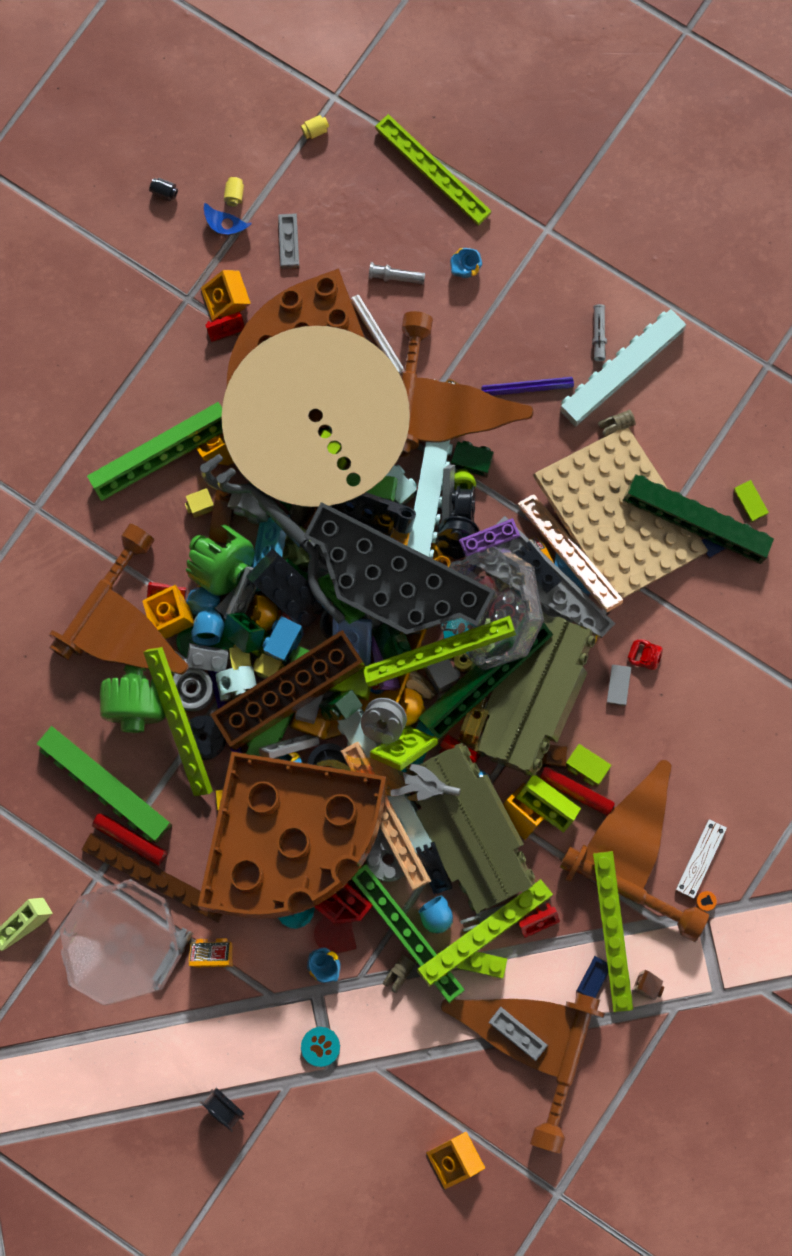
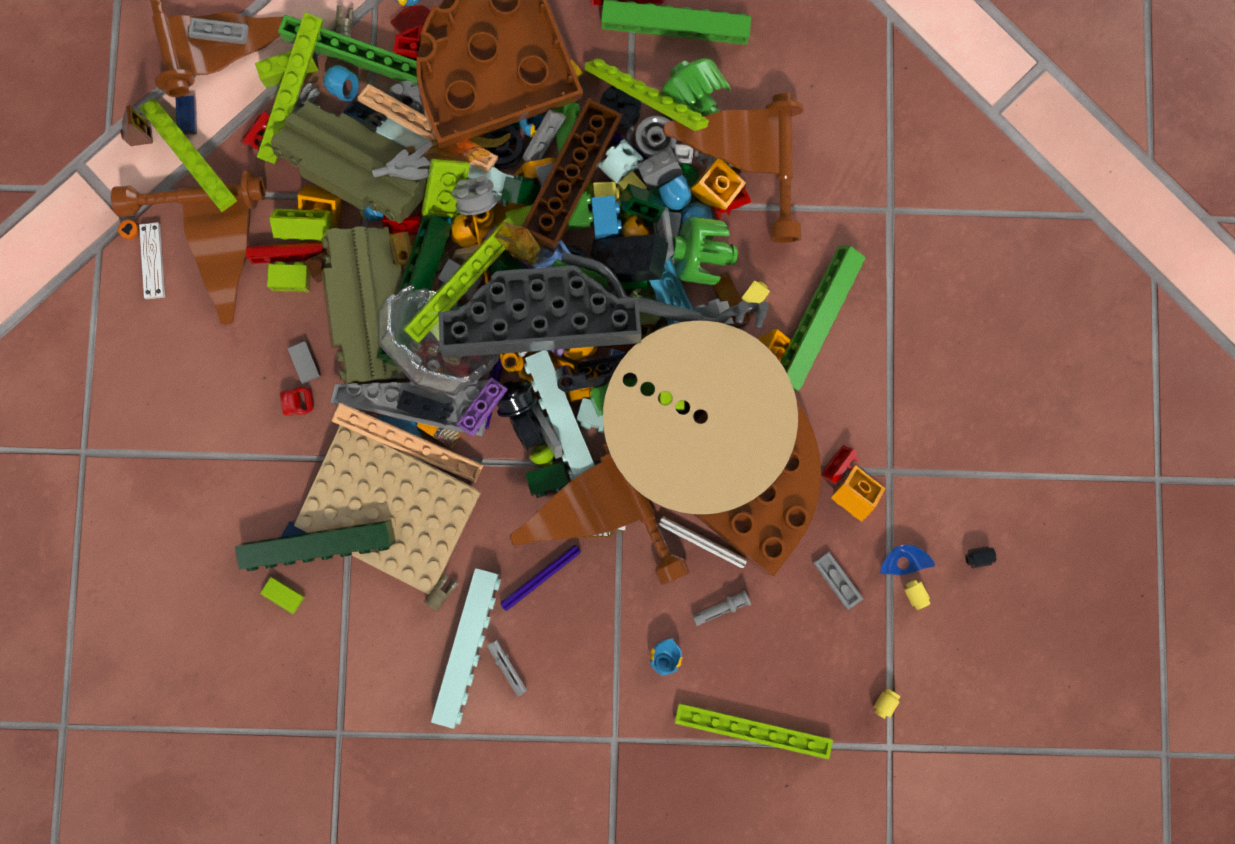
camera: 140 degrees right, 5 degrees up
(370, 648) = (518, 242): none -> clear yellow torso

